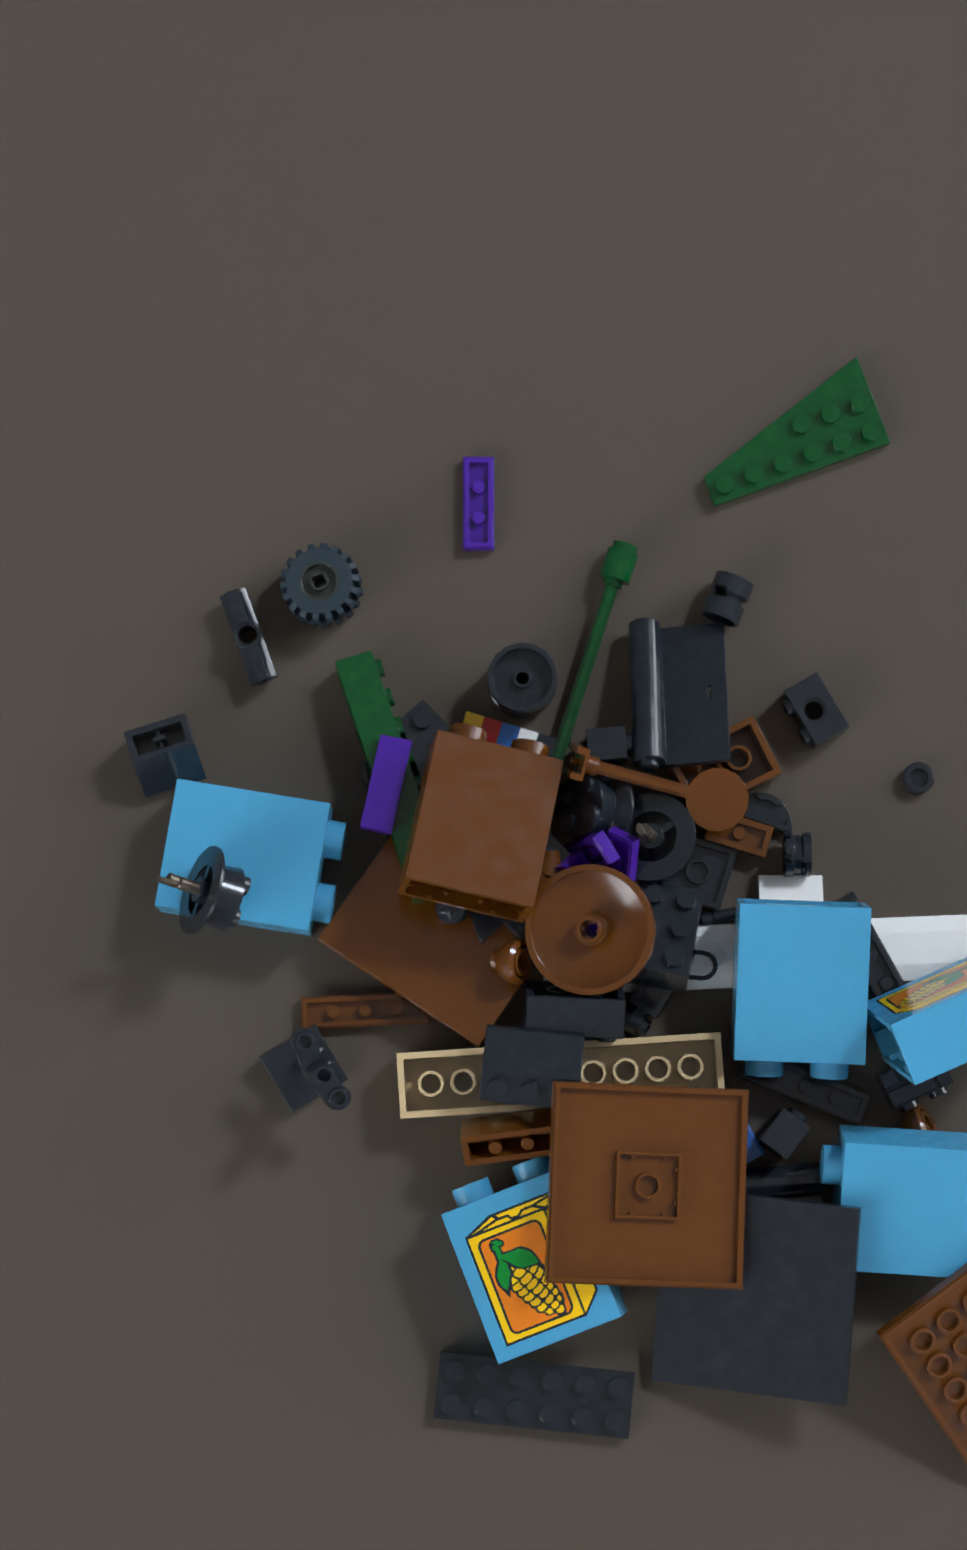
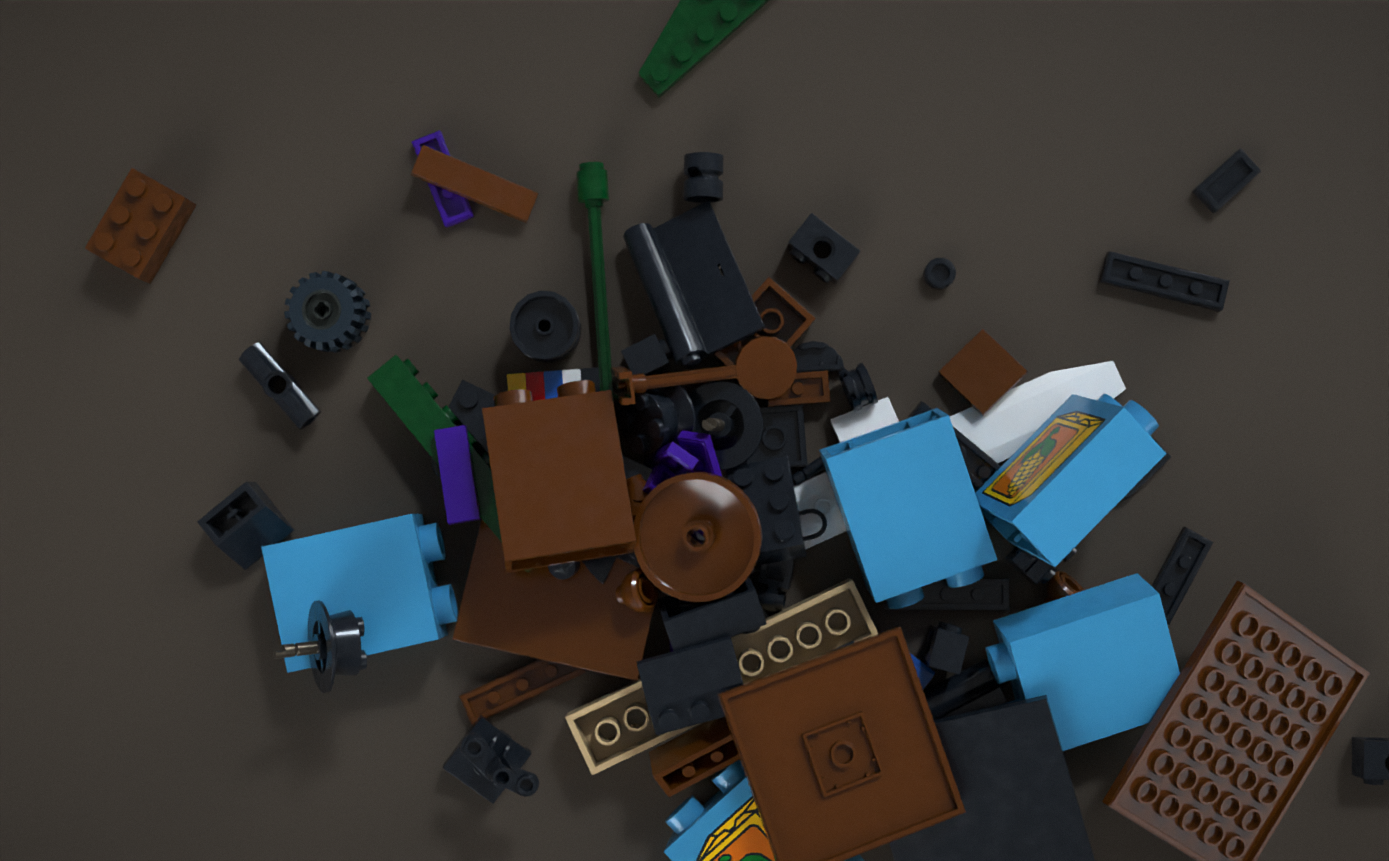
camera: 15 degrees left, 5 degrees up
(178, 436) = (140, 226): none -> reddish brown brick
(507, 520) = (474, 184): none -> reddish brown tile
(922, 888) = (982, 372): none -> reddish brown tile

